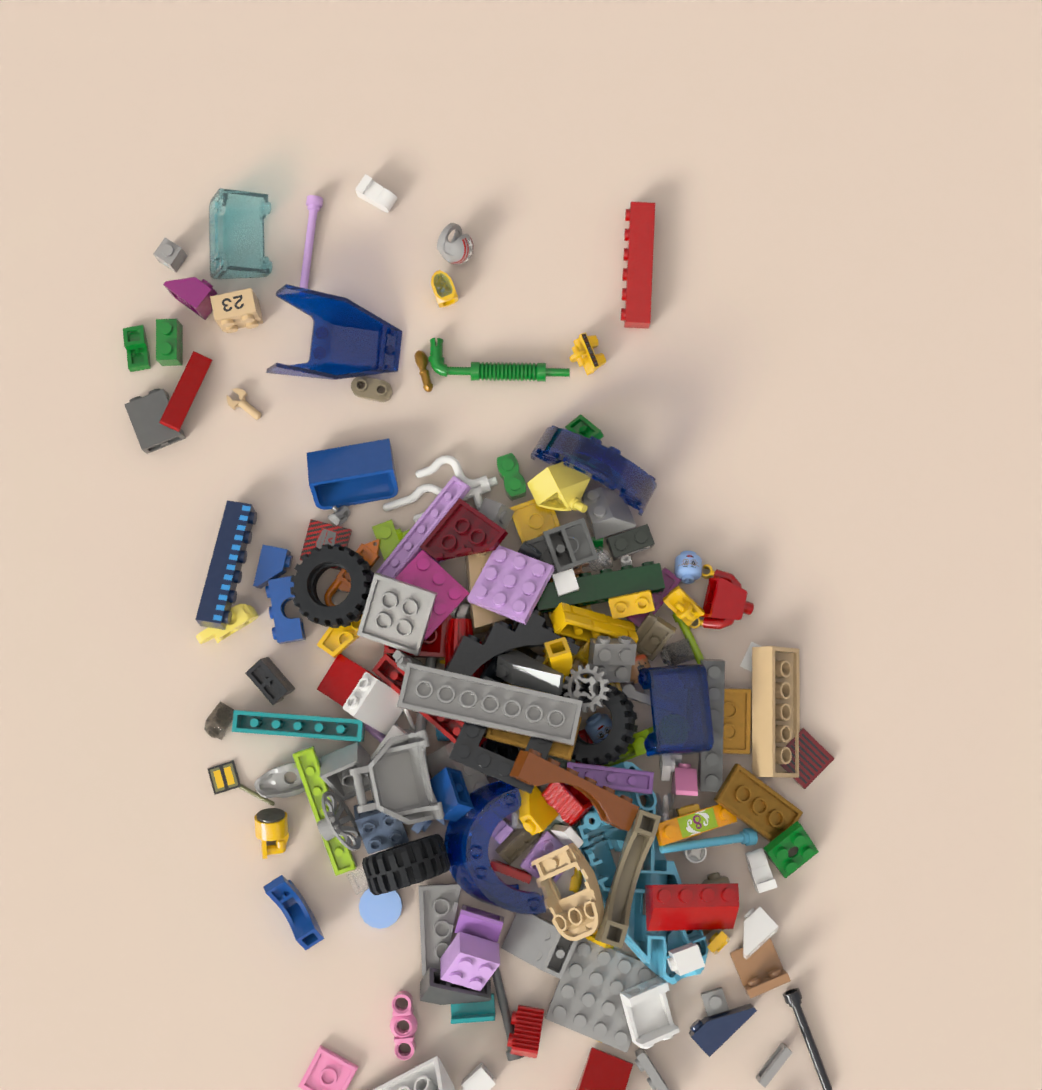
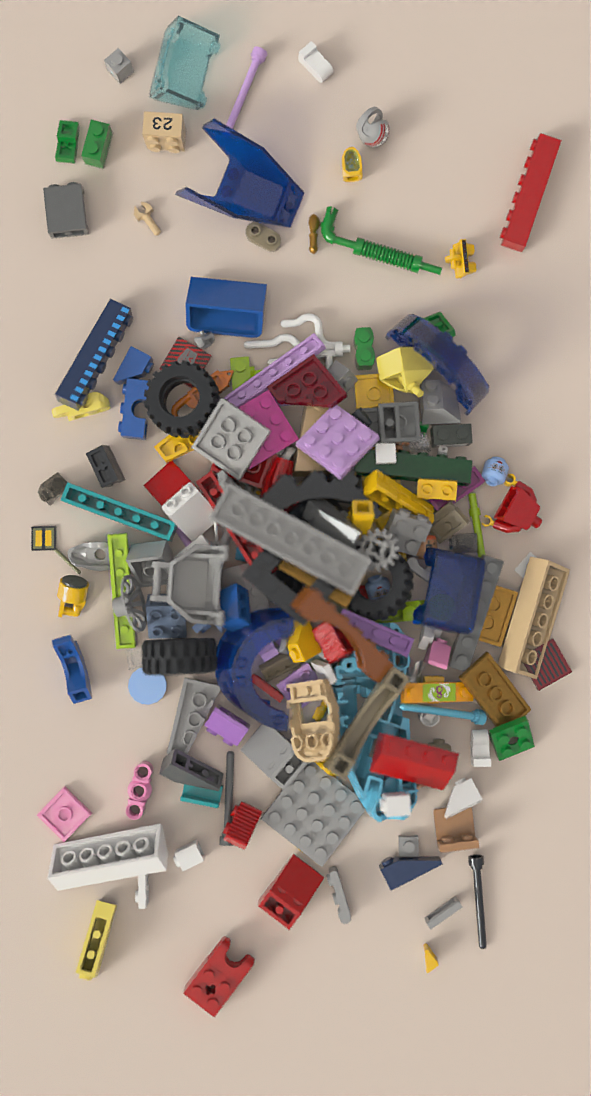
camera: 10 degrees right, 5 degrees up
(185, 391) = (100, 191): red tile -> none
(193, 294) = (129, 106): magenta slope -> none
(469, 961) = (210, 753): lavender brick -> none
(648, 1013) = (350, 839): white panel -> none
(683, 605) = (481, 503): yellow hips -> none
(717, 942) = (426, 797): yellow plate -> none

